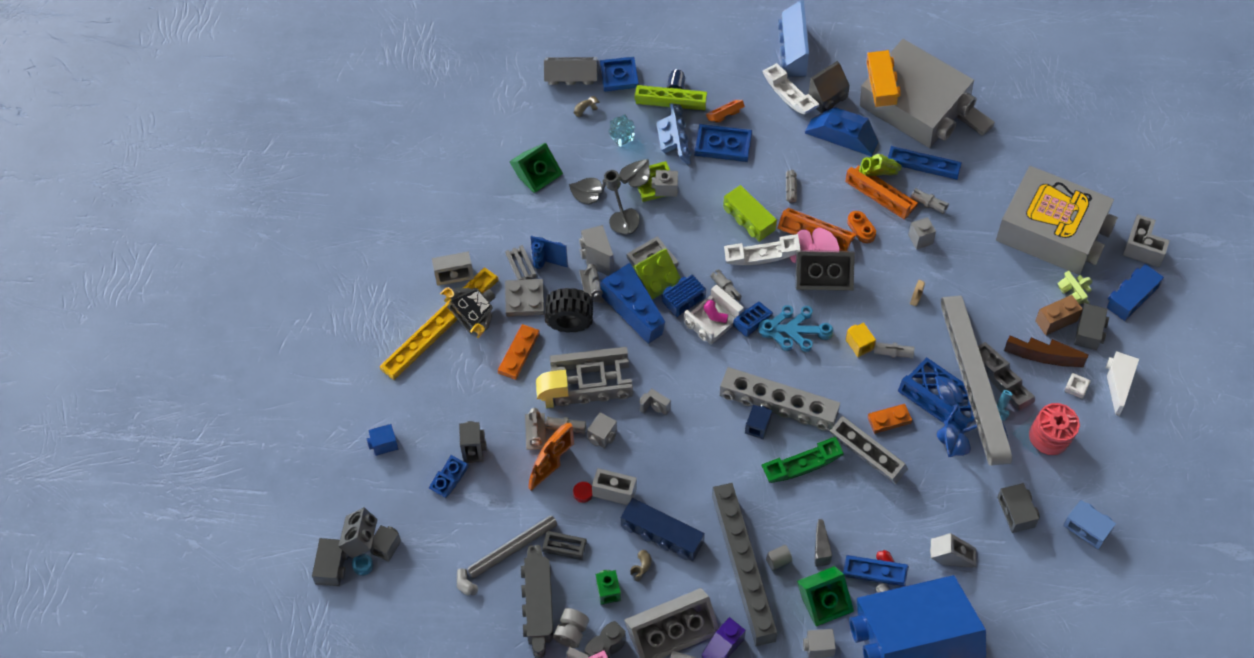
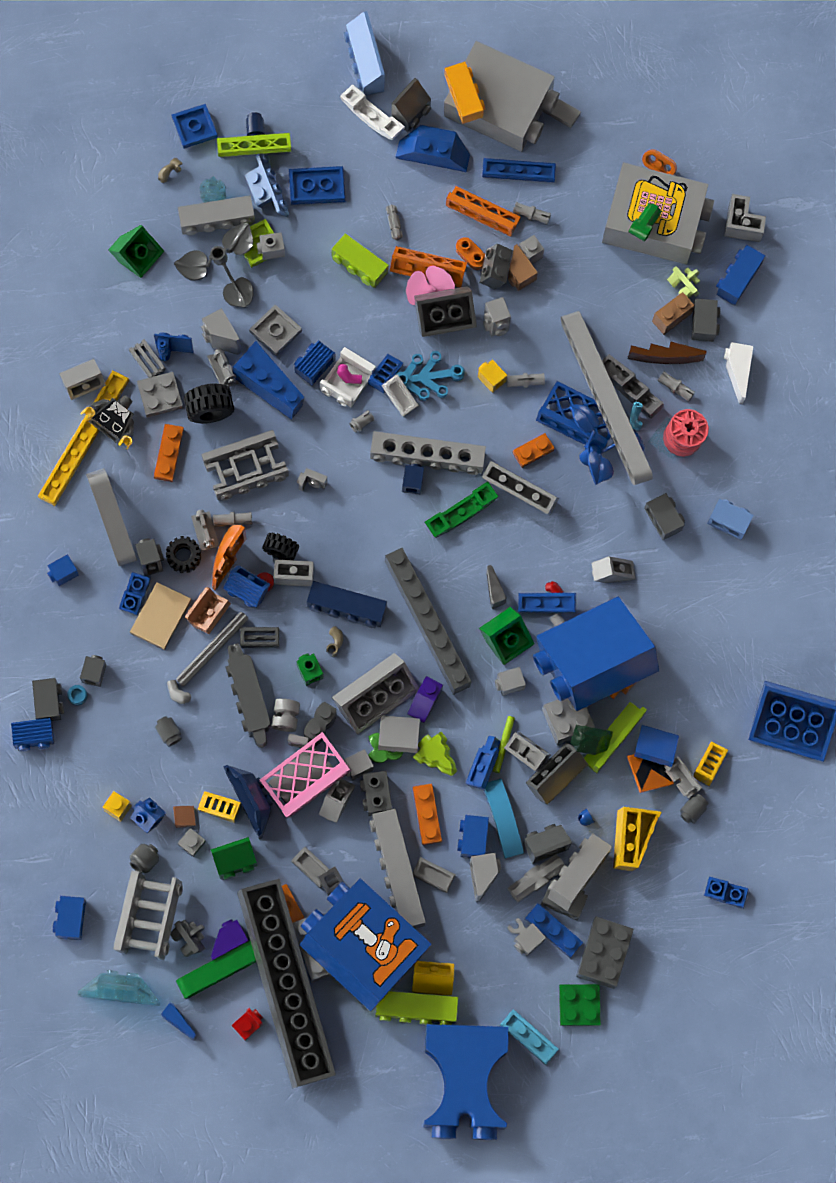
camera: 20 degrees left, 15 degrees up
(305, 592) = (32, 734): none -> blue brick
(358, 532) = (66, 668): dark grey brick -> none
(444, 398) = (111, 517): none -> light grey beam
(444, 619) = (168, 731): none -> dark grey brick
(468, 504) = (160, 616): none -> tan tile
(507, 438) = (183, 565): none -> black tyre
(516, 506) = (207, 610): none -> nougat bracket
(551, 385) = (212, 485): light yellow brick -> none
(562, 491) = (246, 586): none -> blue brick
(570, 70) = (144, 130): light grey slope -> none
(602, 430) = (268, 518): light grey brick -> none
(606, 457) = (280, 547): none -> black tyre
(619, 149) = (216, 215): none -> light grey brick
(657, 273) = (284, 345): lime plate -> none
(717, 358) = (361, 421): none -> light grey pin
(725, 284) = (352, 343): light grey pin -> none
(730, 108) = (312, 148): orange plate -> none
(762, 253) = (380, 301): white slope -> none
(762, 340) = (400, 395): none -> white tile
(779, 557) = (458, 609): light grey brick -> none
(875, 285) = (496, 317): none -> light grey brick
(879, 165) = (476, 185): lime rock -> none
(884, 240) = (496, 266): none -> dark grey brick
(909, 249) = (521, 270): none -> medium nougat slope
(917, 293) = (537, 316): tan tile -> none
(1041, 222) = (644, 224): none -> green piece
(1051, 384) = (676, 386): none -> light grey pin
(1067, 174) = (660, 162): none -> orange plate
(1077, 385) = (700, 381): white tile -> none

